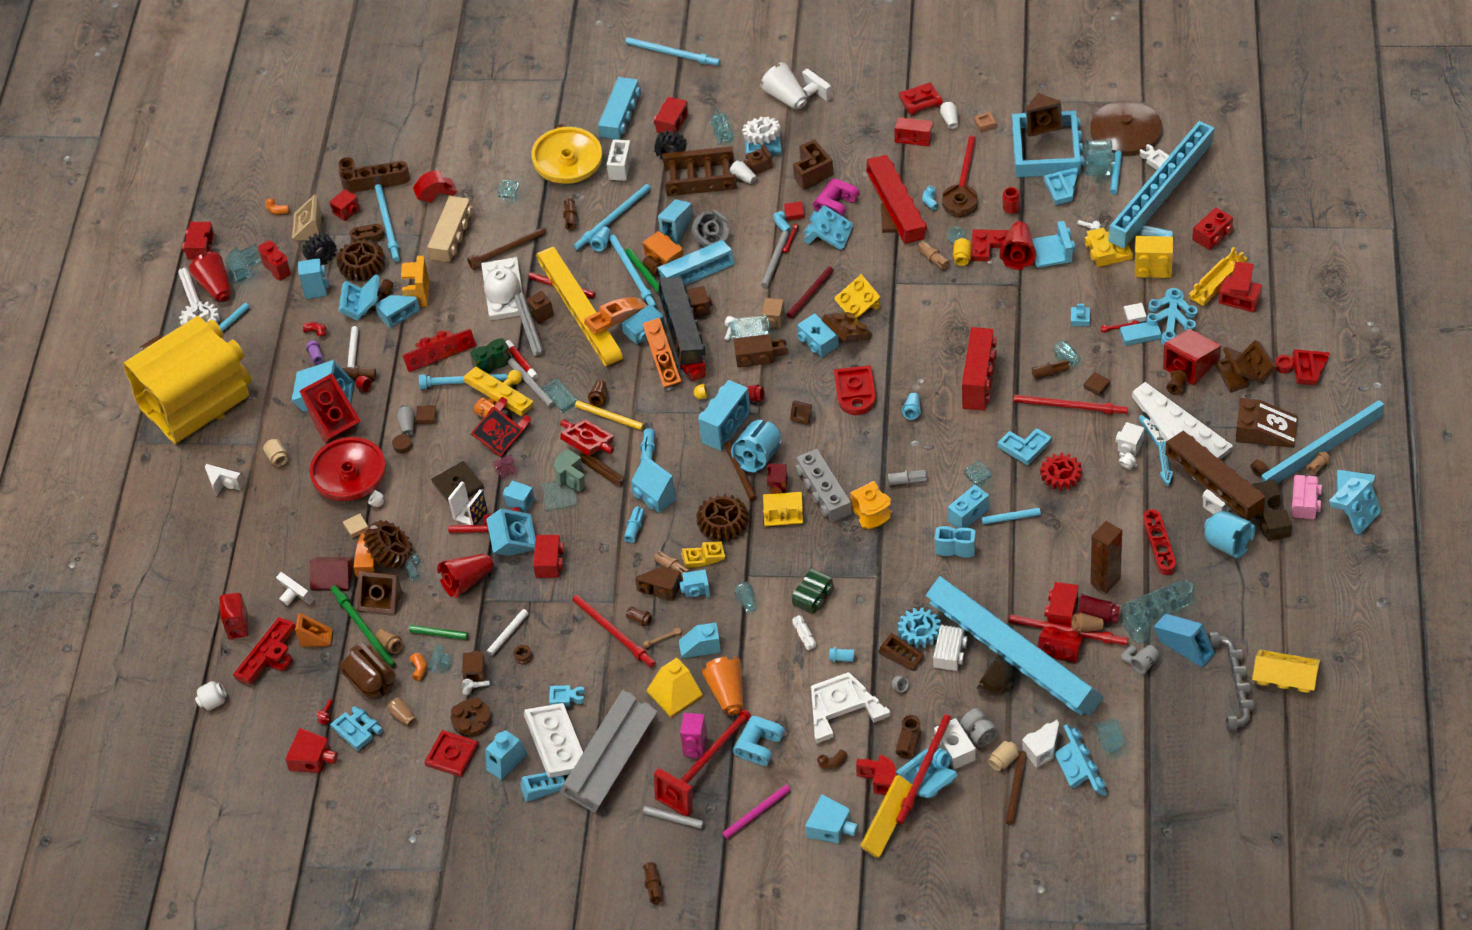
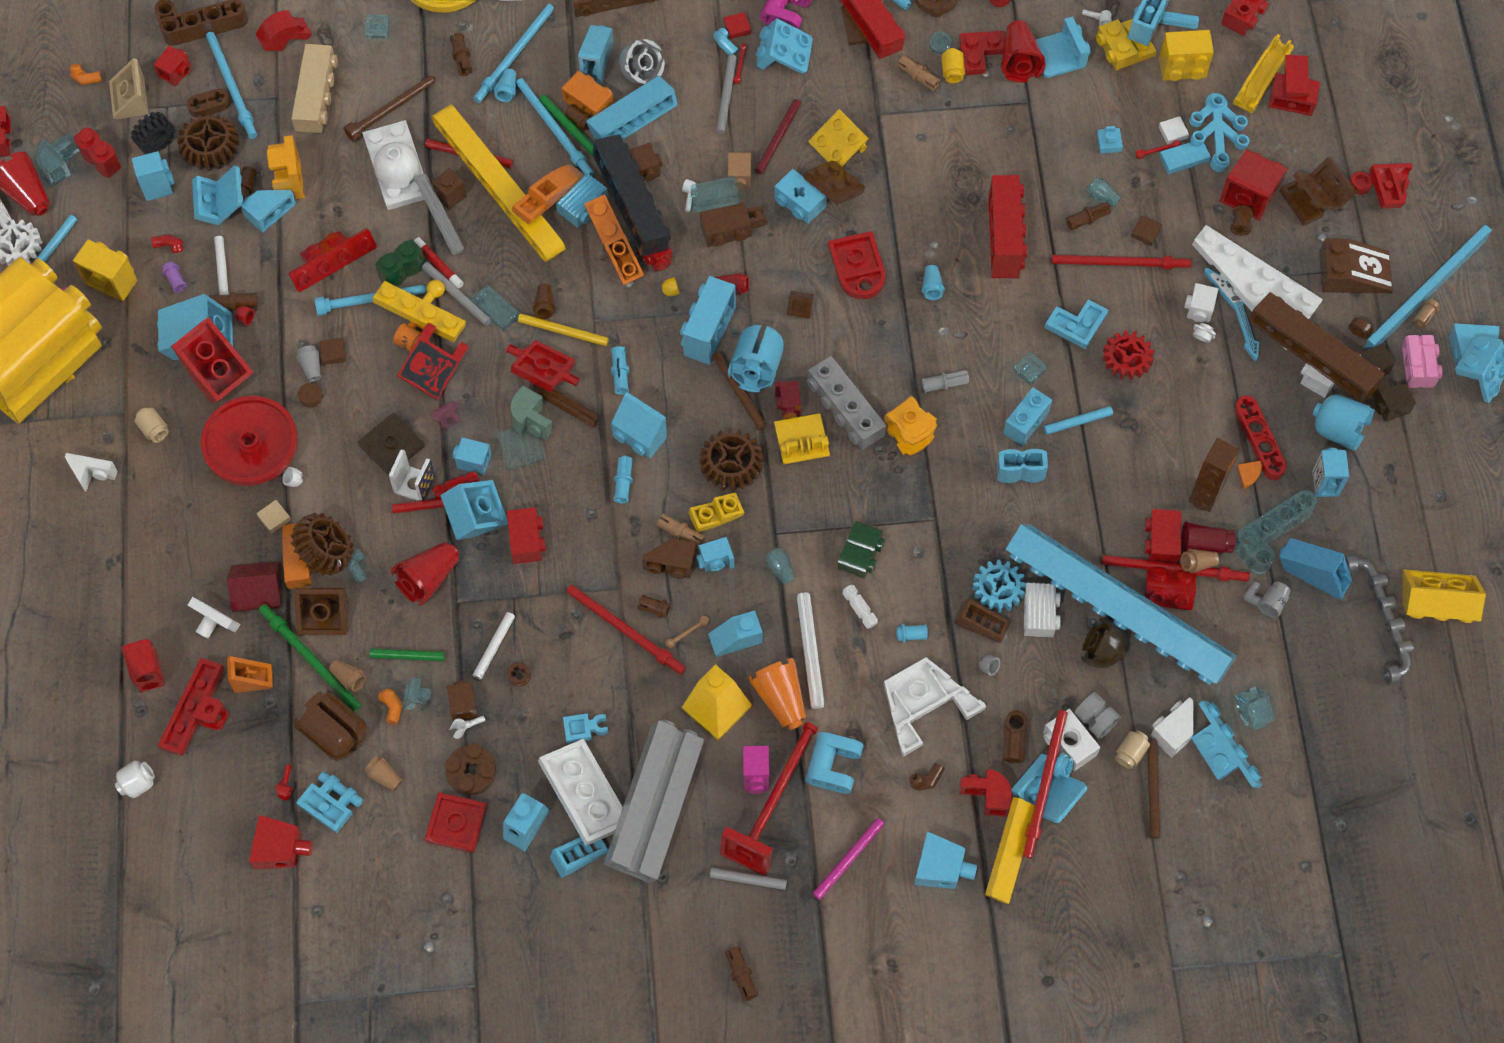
camera: 15 degrees left, 15 degrees up
(262, 340) = (105, 270): none -> yellow brick
(757, 660) = (810, 651): none -> white axle
(1144, 567) = (1249, 473): none -> orange tile
(1208, 569) = (1330, 473): none -> medium azure brick

